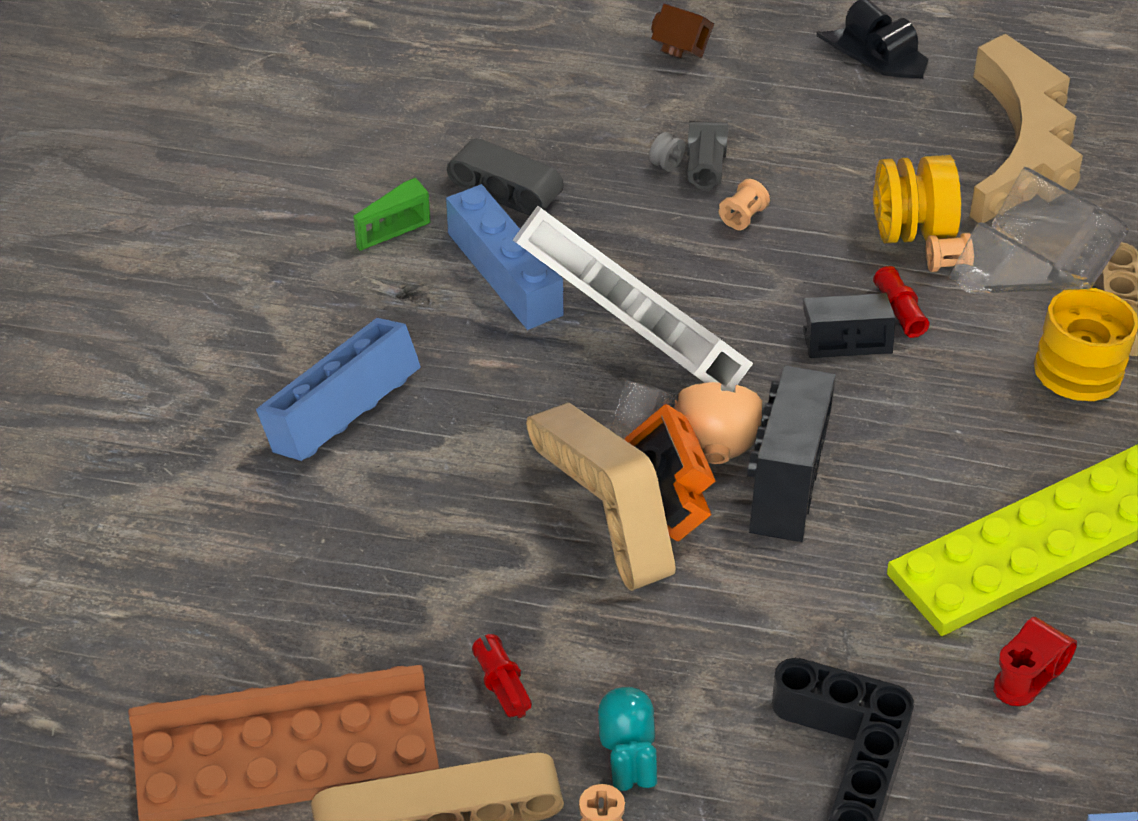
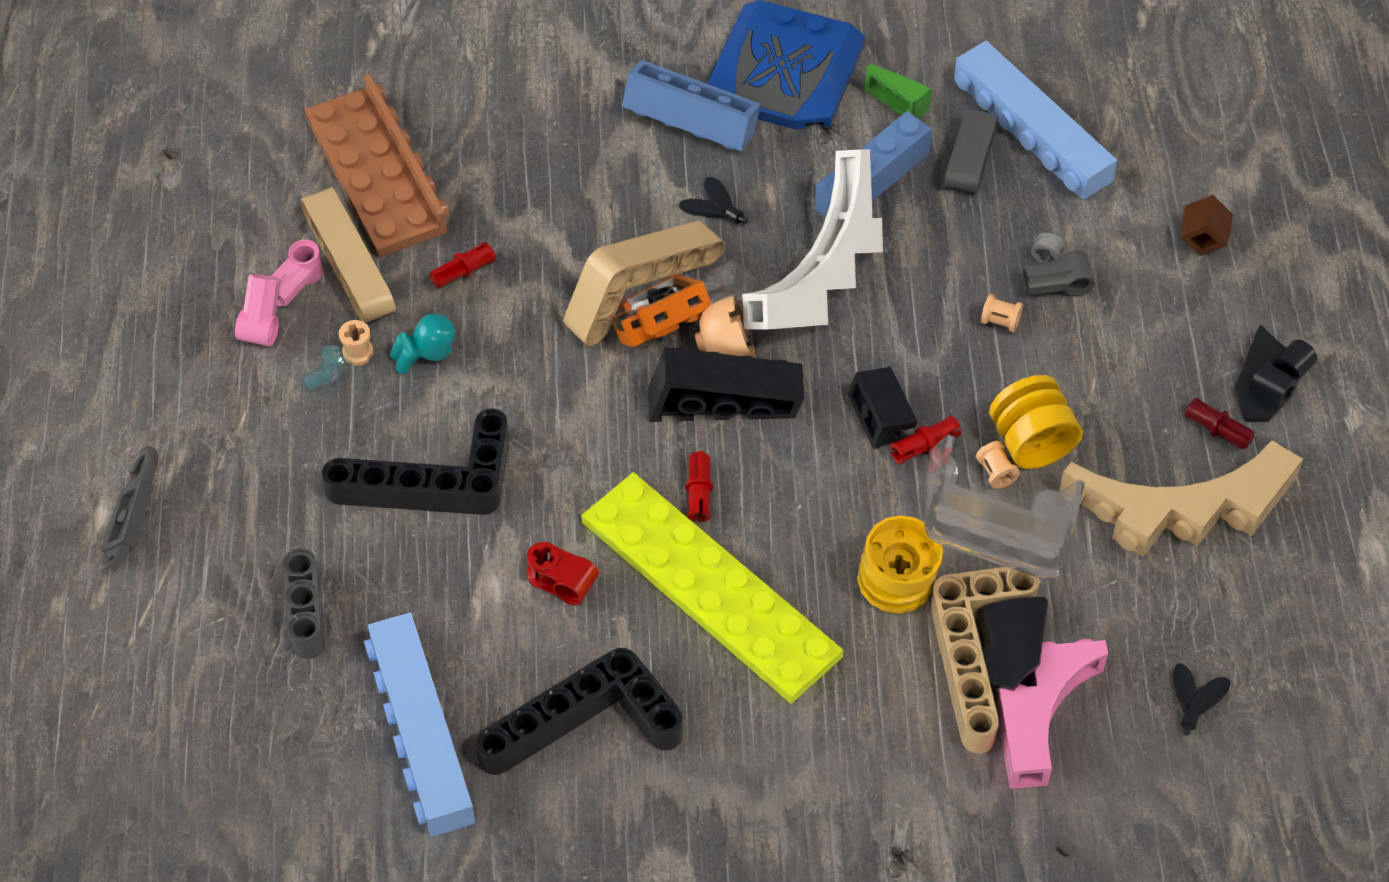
camera: 75 degrees right, 10 degrees up
(292, 301) = (789, 63): none -> wedge
(492, 409) = (718, 207): none -> black piece
(494, 114) = (1035, 120): none -> light blue brick
(923, 505) = (699, 486): none -> red axle
(931, 88) = (1219, 423): none -> dark red axle

